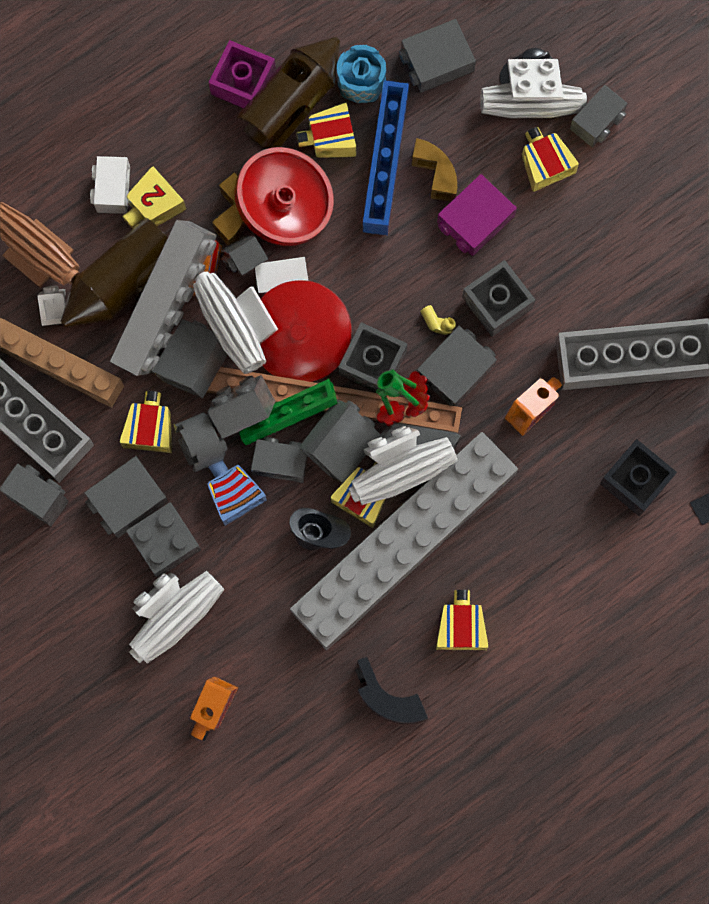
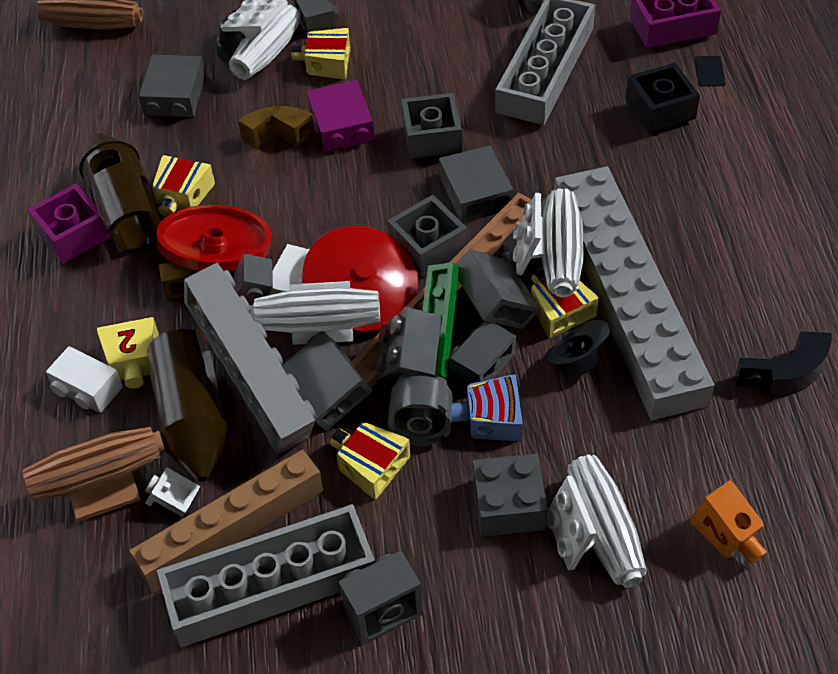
camera: 60 degrees left, 25 degrees down
(125, 497) = (438, 513): dark grey brick -> none
(361, 74) = (147, 134): dark azure brick -> none
(385, 158) = (239, 151): blue brick -> none
(415, 392) = (475, 215): plant -> none
(436, 324) = (422, 185): light yellow arm -> none
(462, 625) = (740, 277): torso -> none
(533, 404) = (550, 132): orange torso -> none

